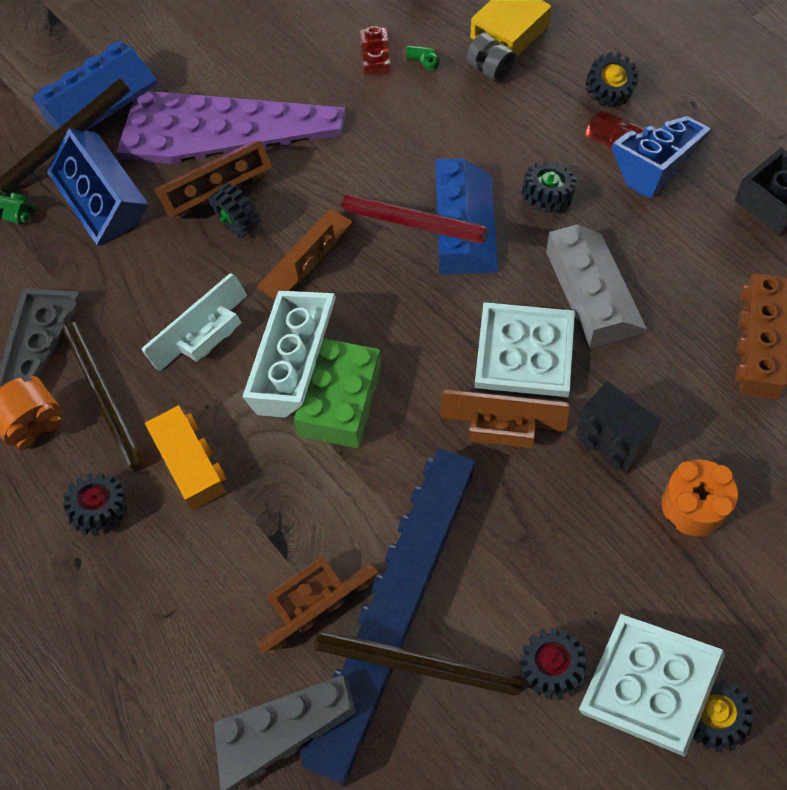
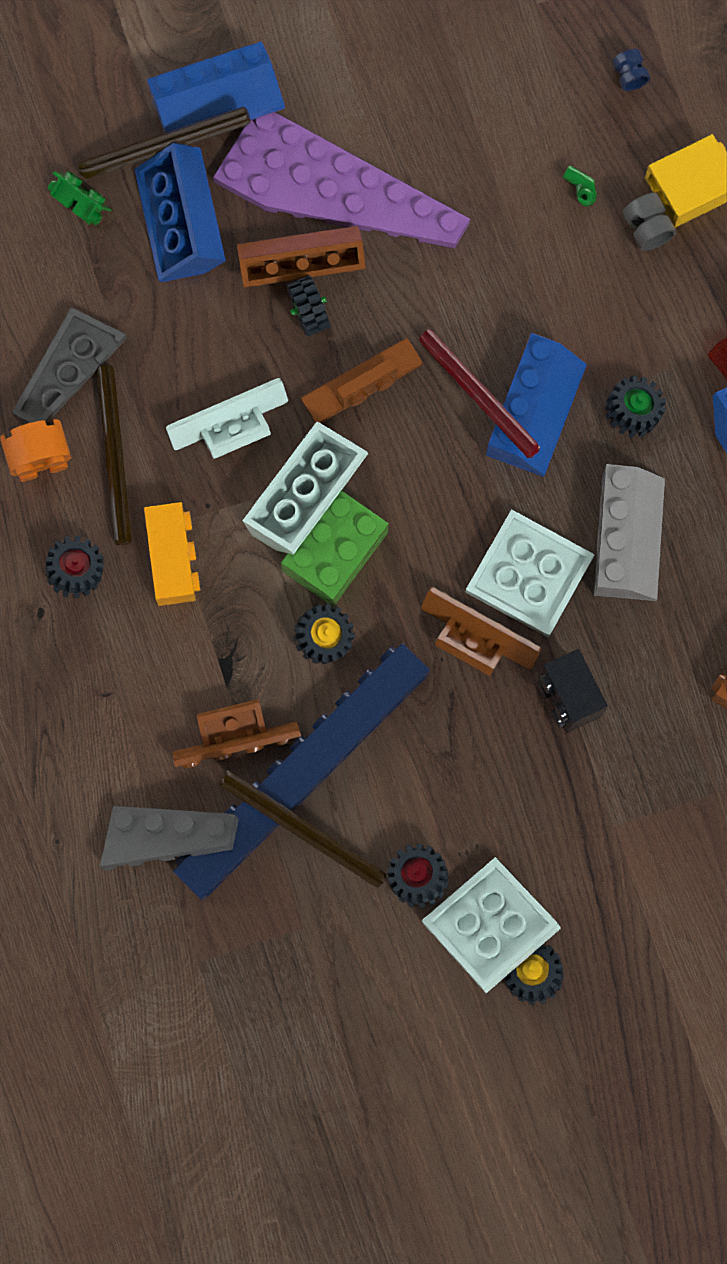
camera: 15 degrees right, 15 degrees up
(360, 471) = (324, 634): none -> black wheel
(375, 50) = (532, 155): clear red slope -> none
(699, 497) = (633, 779): orange brick -> none

